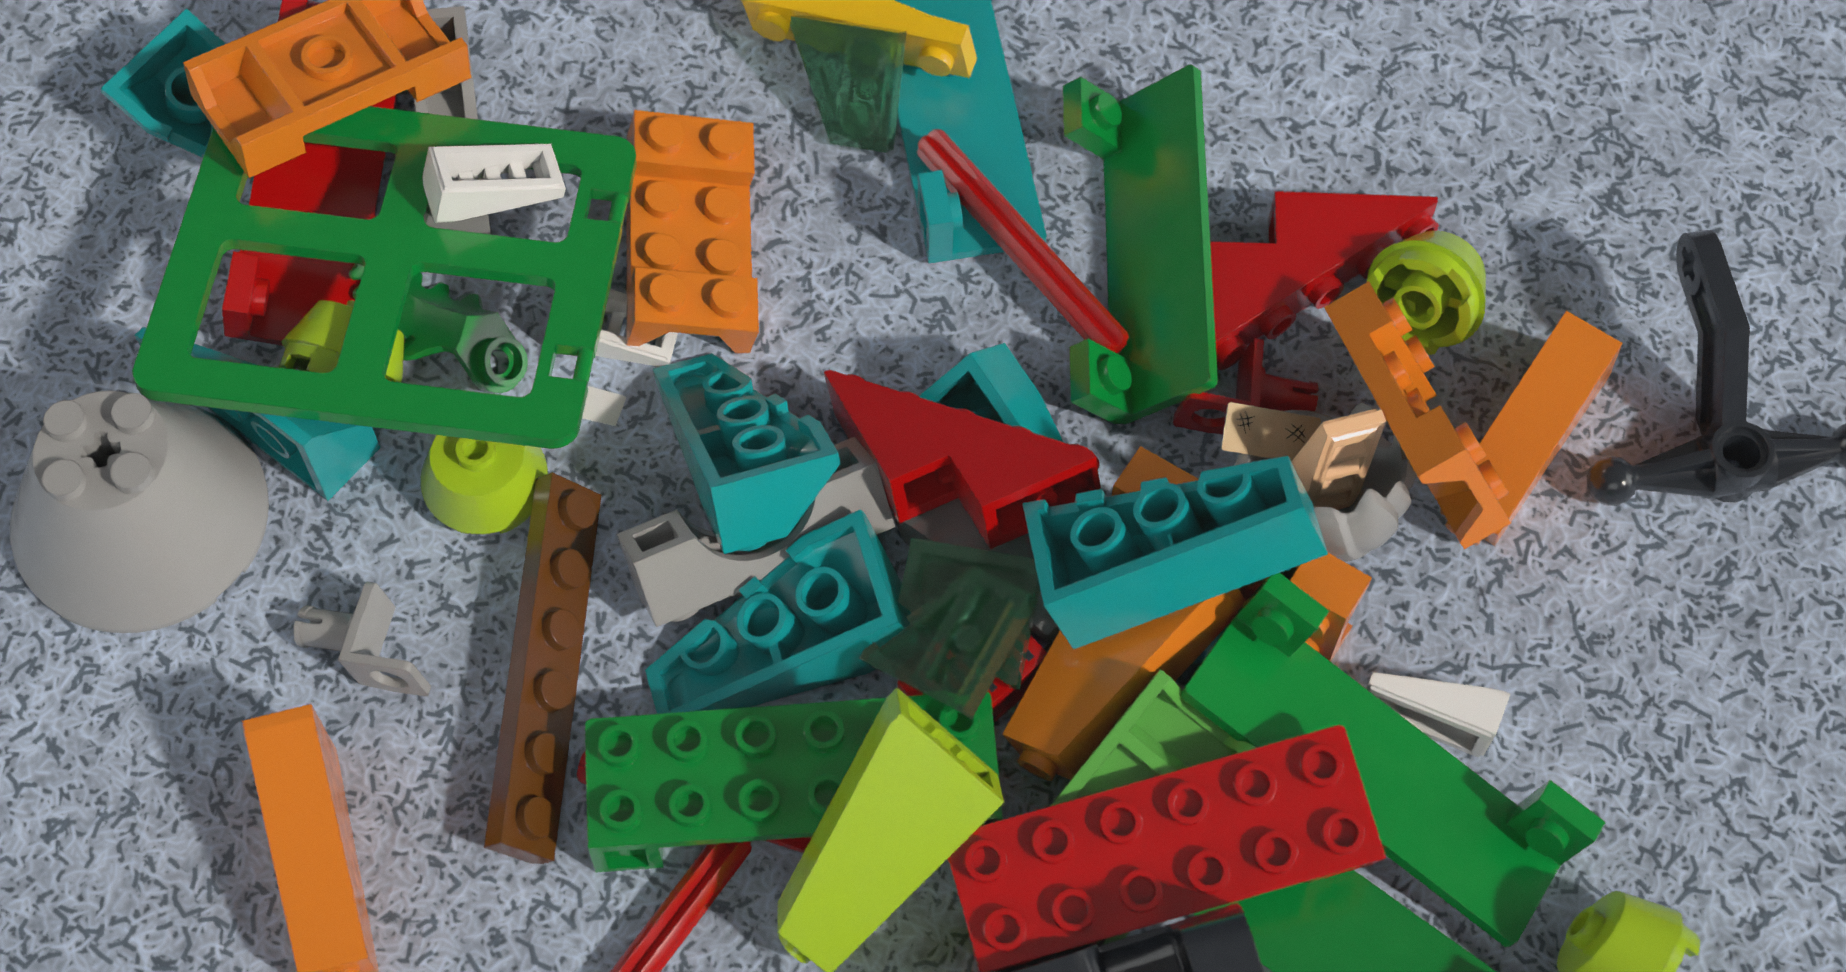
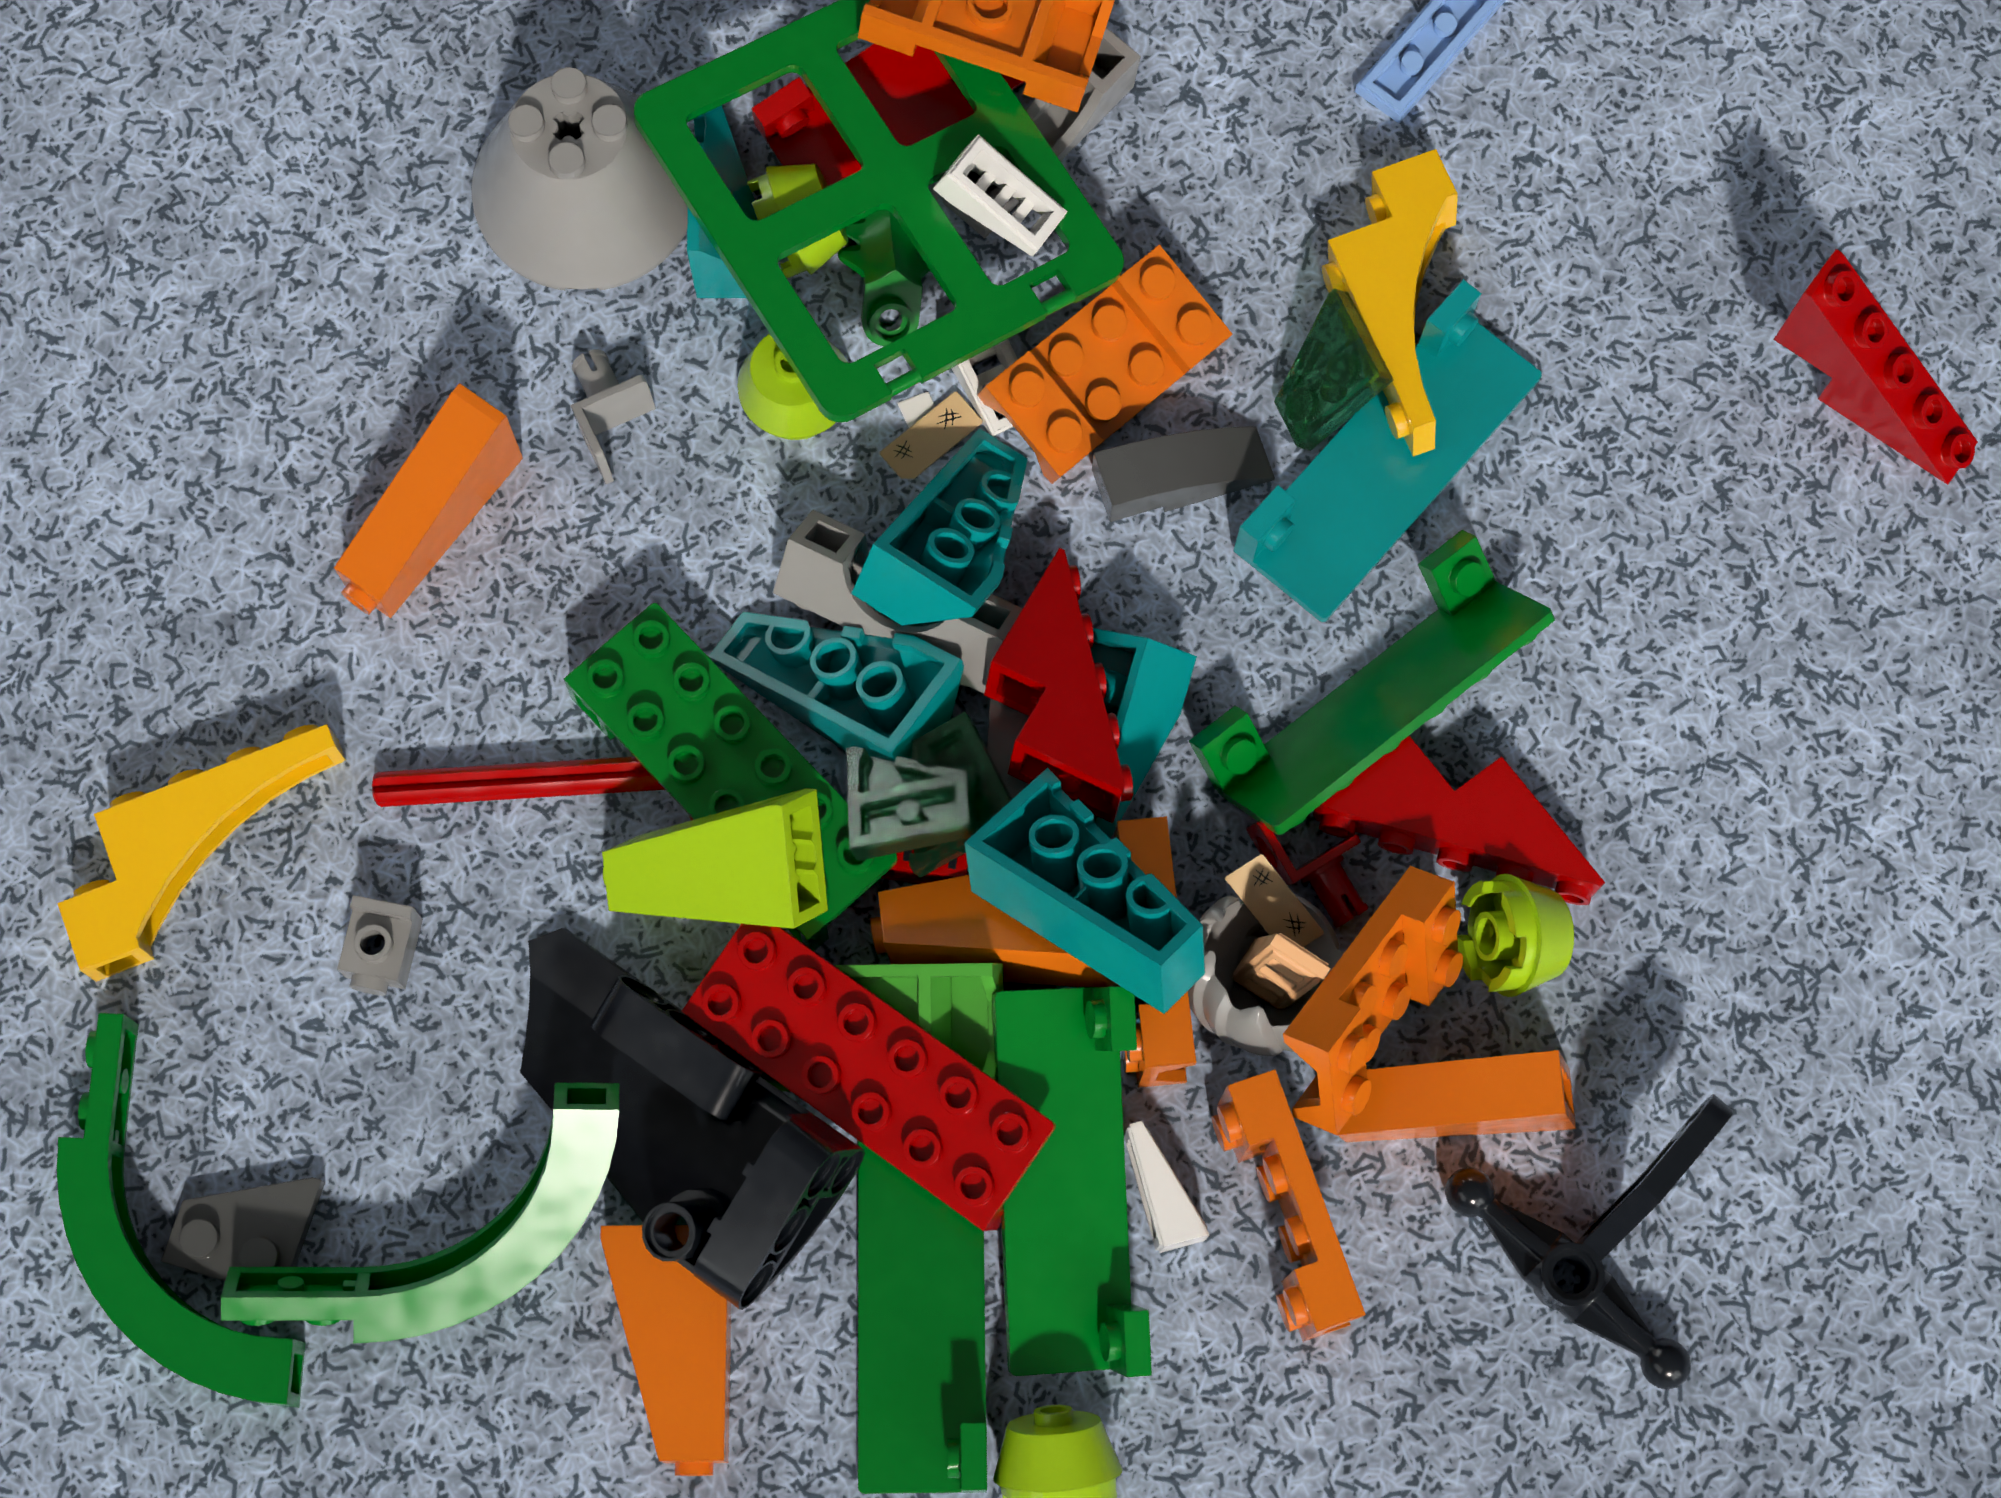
camera: 50 degrees right, 10 degrees up
(543, 672) = (684, 542): reddish brown plate -> none
(625, 411) = (931, 437): none -> tan sticker
(827, 250) = (1179, 469): none -> dark grey slope
(1021, 242) = (1299, 604): red axle -> none
(1615, 630) = (1258, 1122): none -> orange piece

